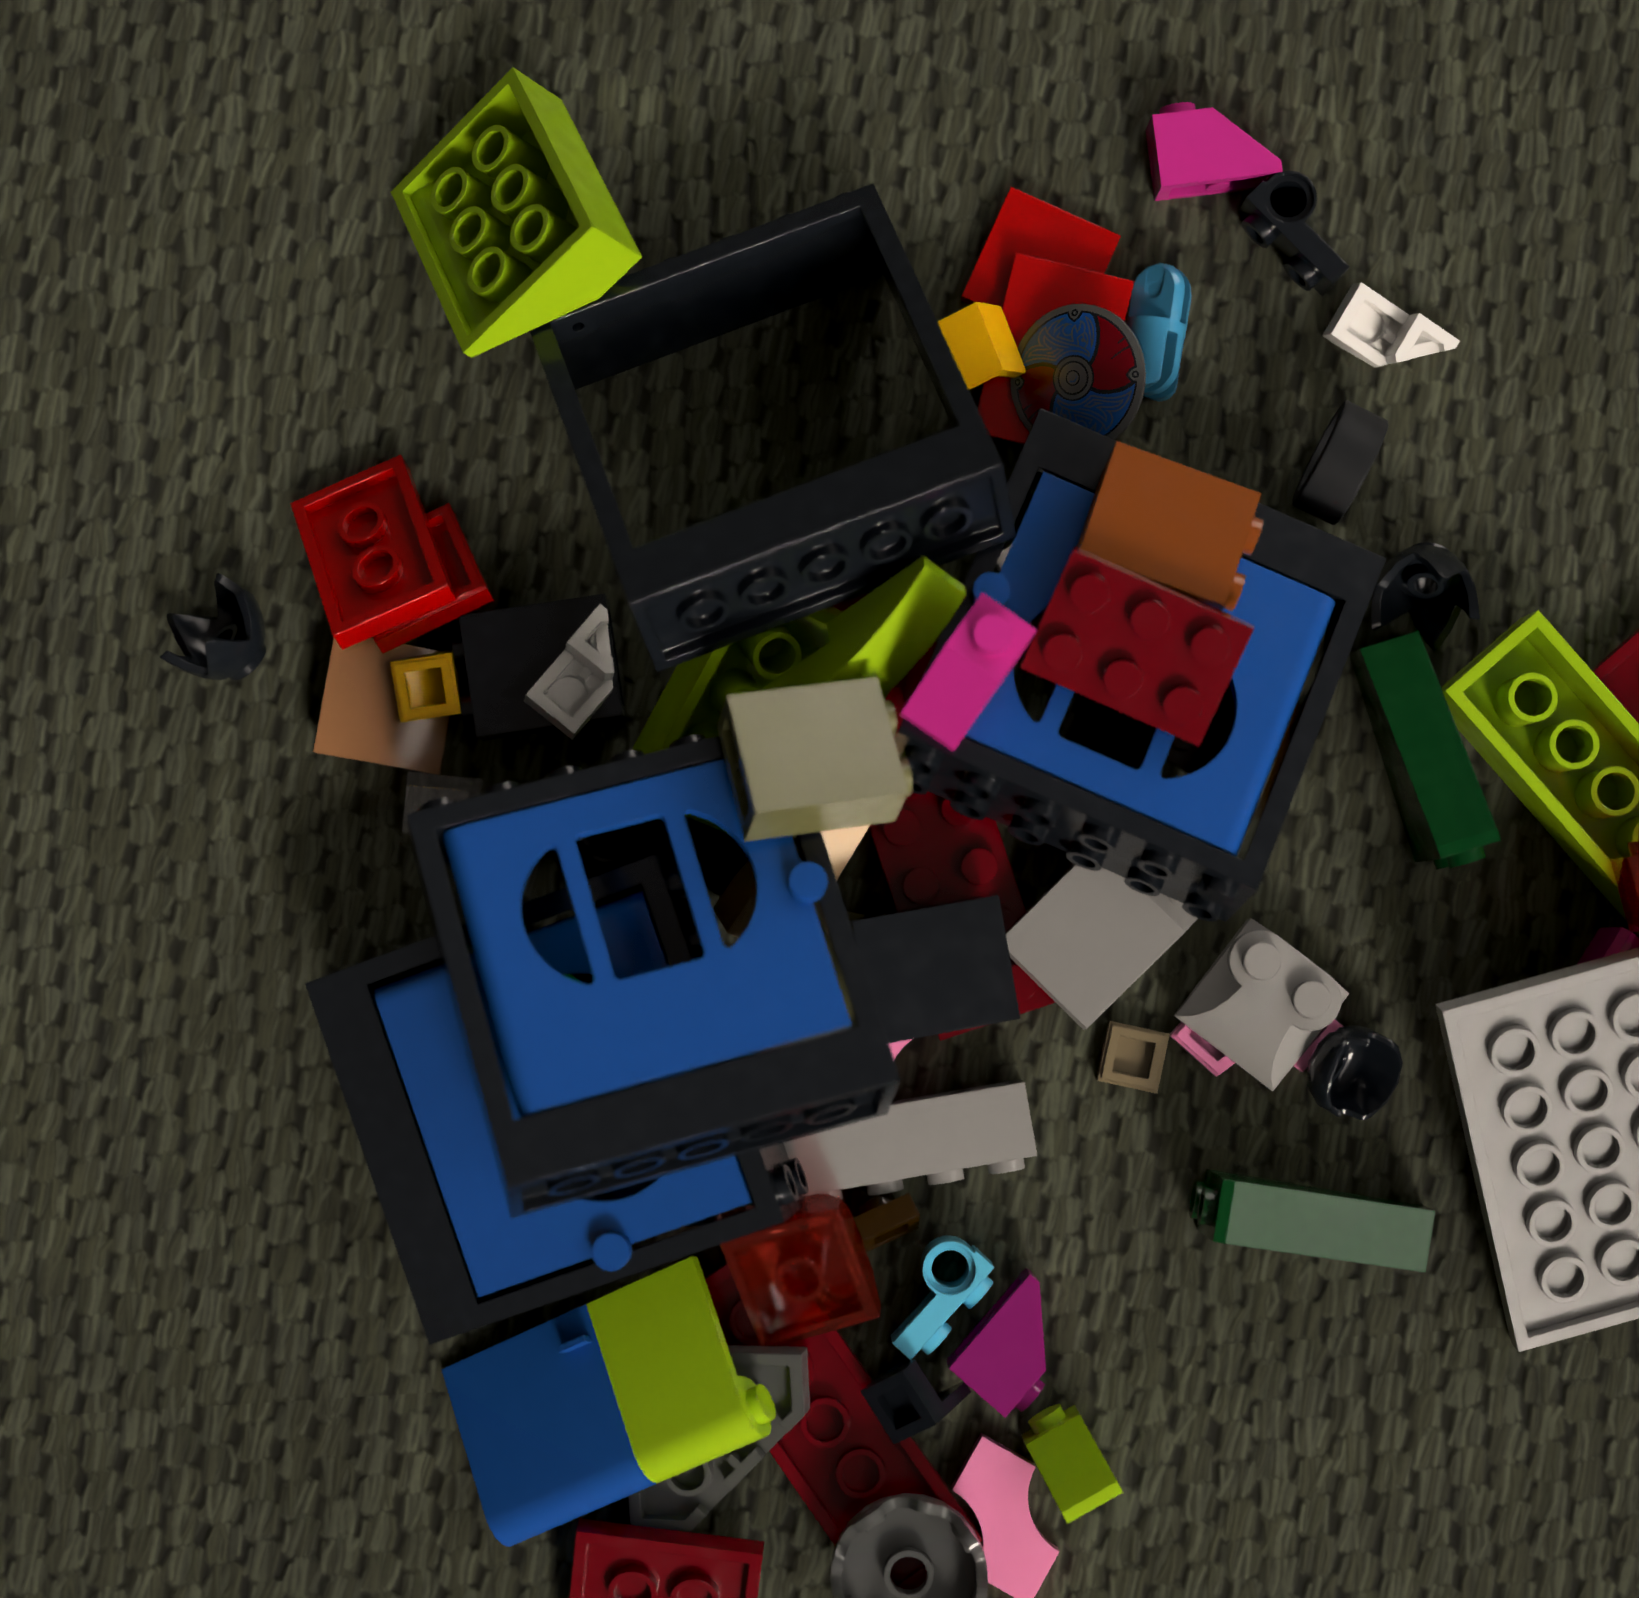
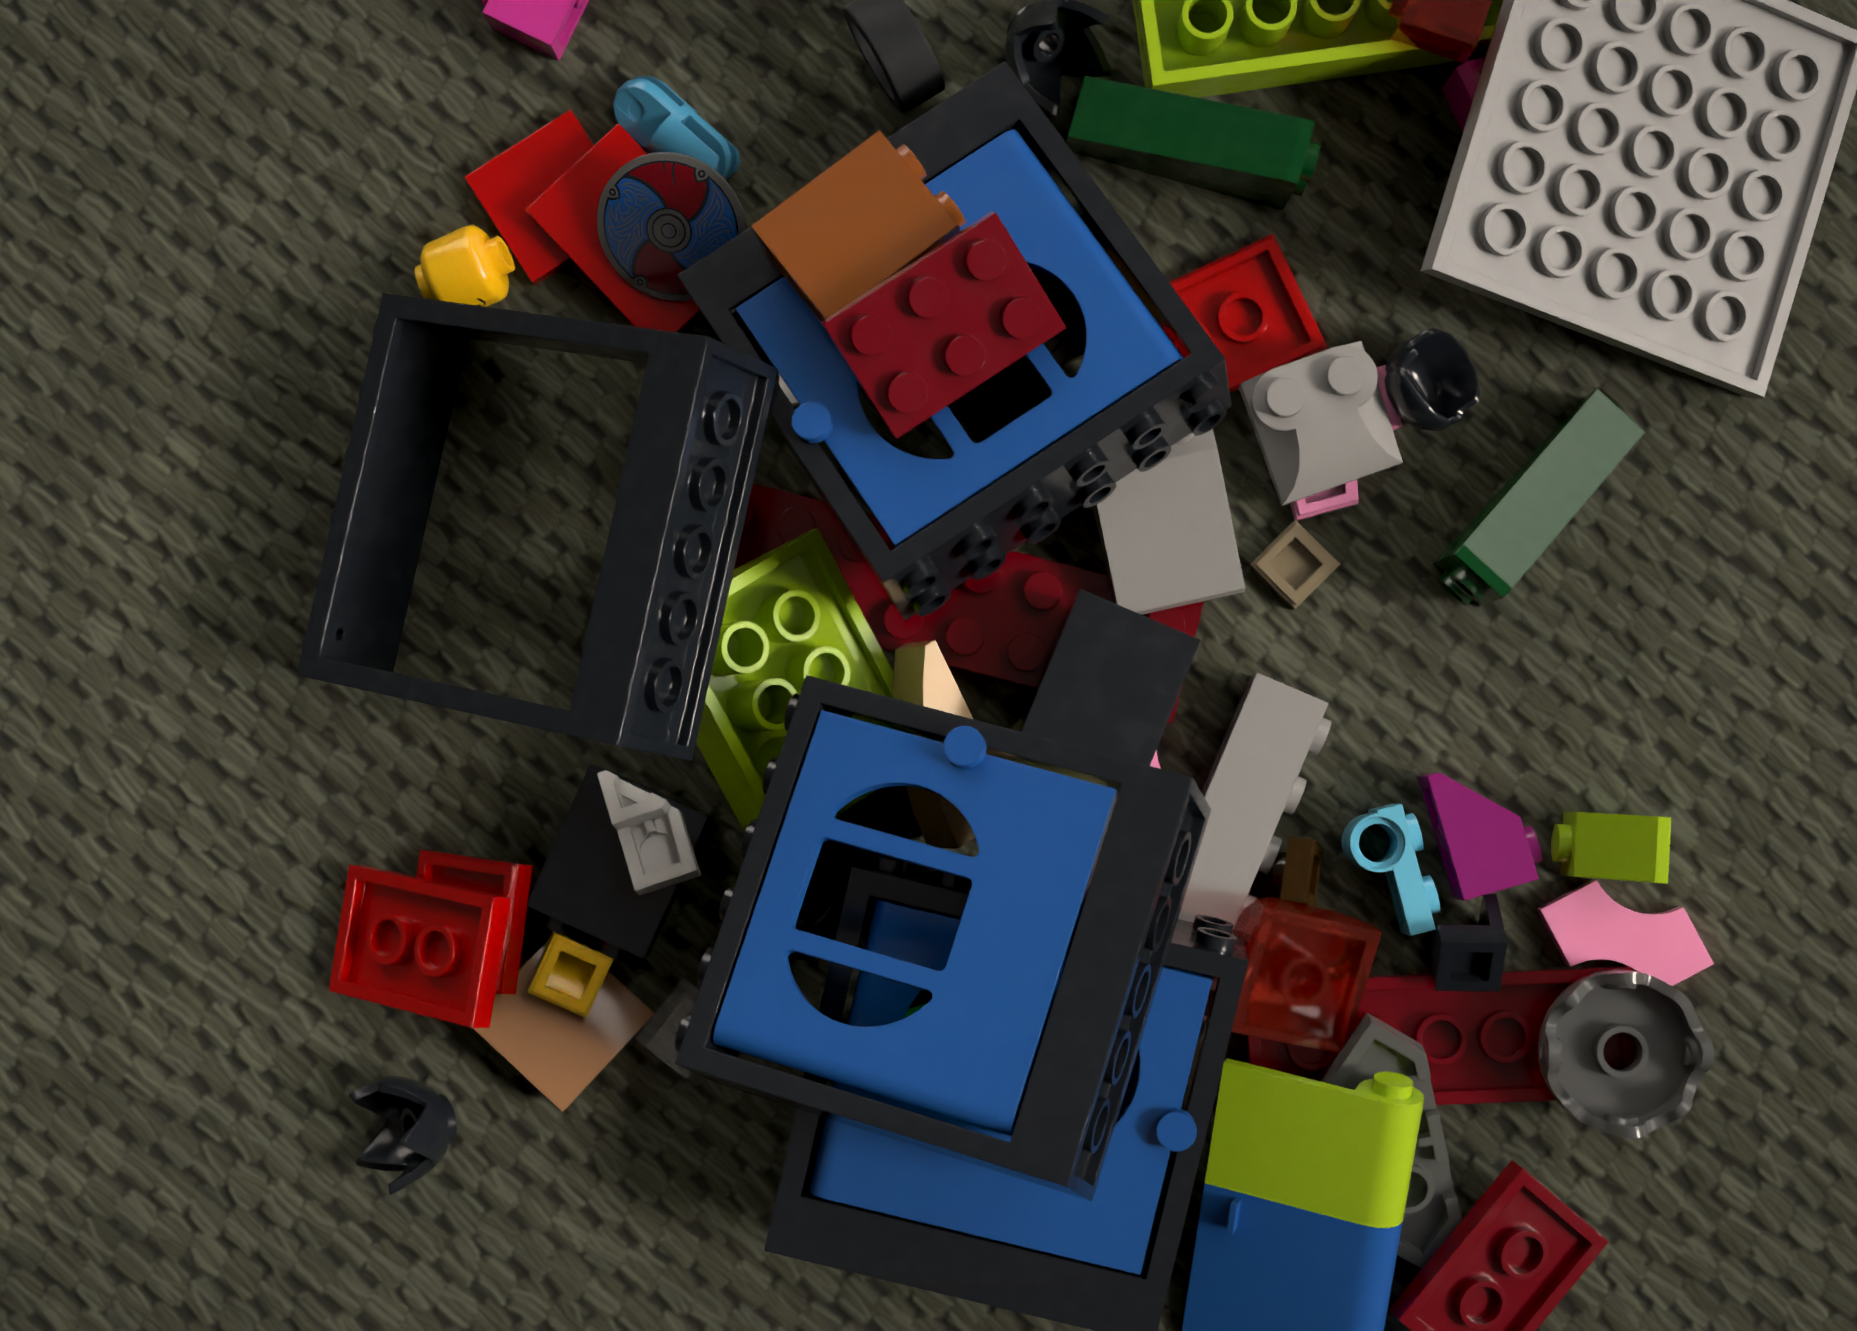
camera: 50 degrees left, 0 degrees up
(513, 217) = (205, 629): lime slope -> none
(813, 758) = (858, 672): olive brick -> none
(883, 630) = (798, 568): lime slope -> none
(937, 235) = (465, 268): none -> yellow head
(968, 672) = (871, 486): dark pink slope -> none
(982, 343) = (586, 289): yellow panel -> none
(1313, 887) = (1251, 310): none -> red tile

